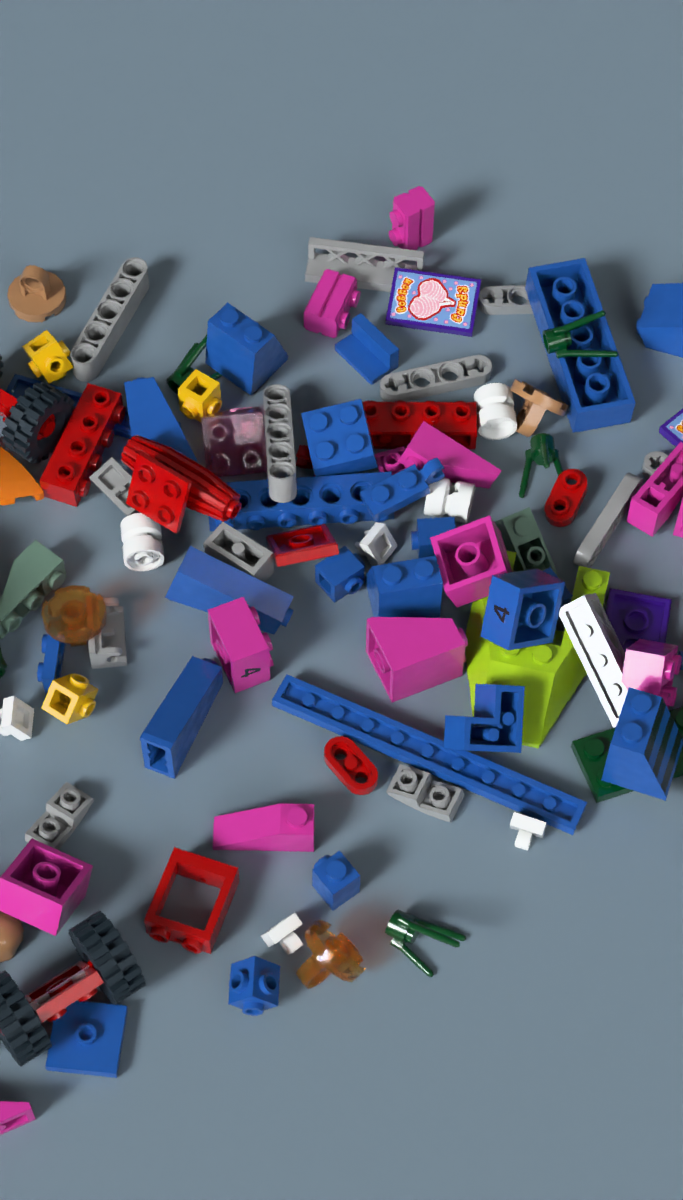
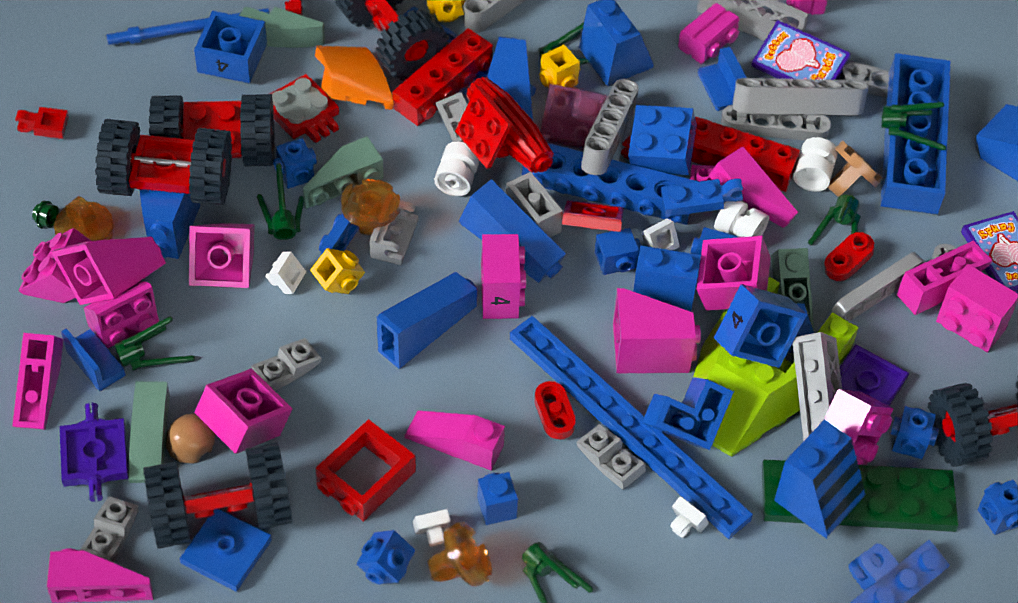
camera: 20 degrees right, 5 degrees down
(450, 344) = (799, 96): none -> light grey beam

